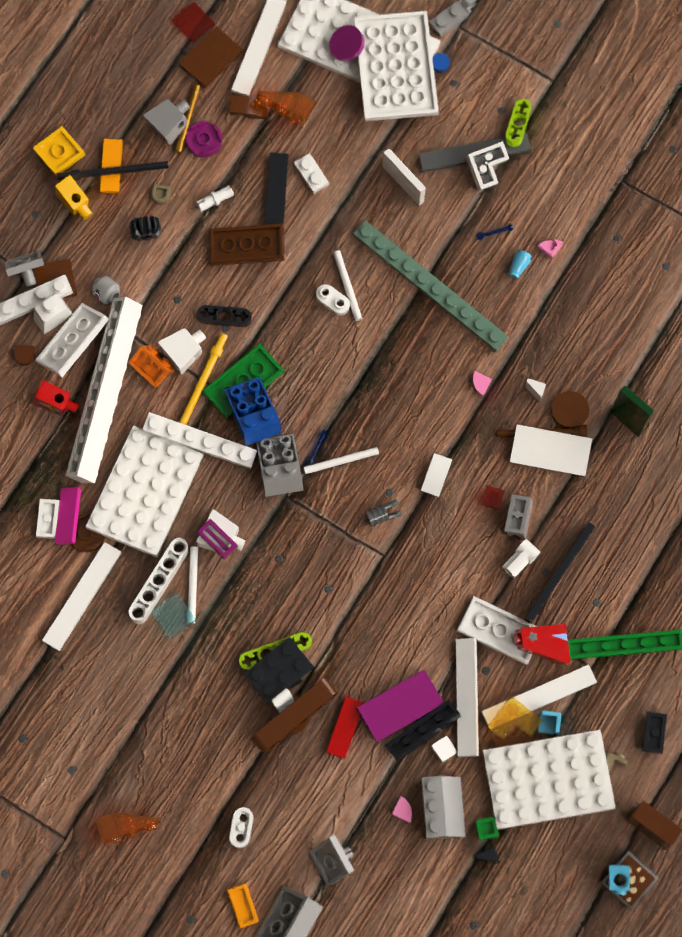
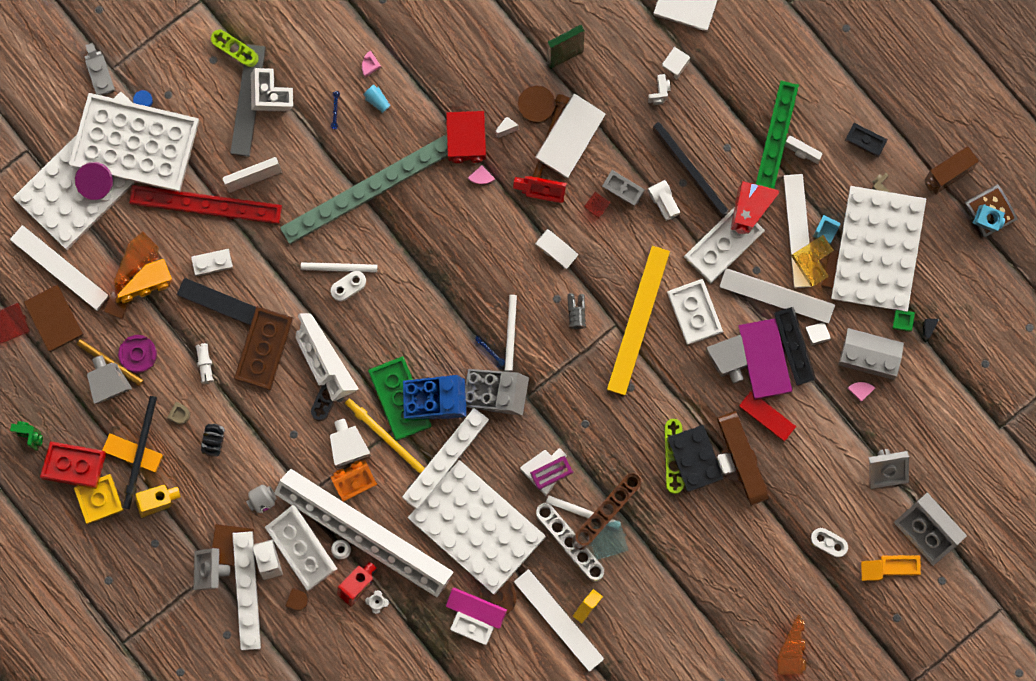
camera: 65 degrees left, 5 degrees up
(40, 425) = (382, 602): none -> white plate
(82, 118) = (73, 465): none -> red tile
(83, 371) = (334, 549): none -> white plate
(94, 74) = (23, 429): none -> green bracket
(104, 617) = (587, 606): none -> yellow piece
(188, 603) = (609, 503): none -> reddish brown beam
(228, 878) = (871, 570): none -> light orange slope
(255, 299) = (323, 359): none -> white wedge
(275, 122) = (149, 278): none -> light orange slope
(363, 150) = (205, 204): none -> red tile
(388, 670) = (728, 358): none -> light grey torso
(395, 574) = (638, 320): none -> yellow tile
(423, 624) = (694, 312): none -> white tile
(489, 440) = (541, 188): none -> red hinge
(513, 354) = (466, 136): none -> red panel
(619, 674) = (803, 150): none -> white plate
(632, 520) = (663, 87): none -> white bracket
(660, 524) = (676, 62): none -> white panel

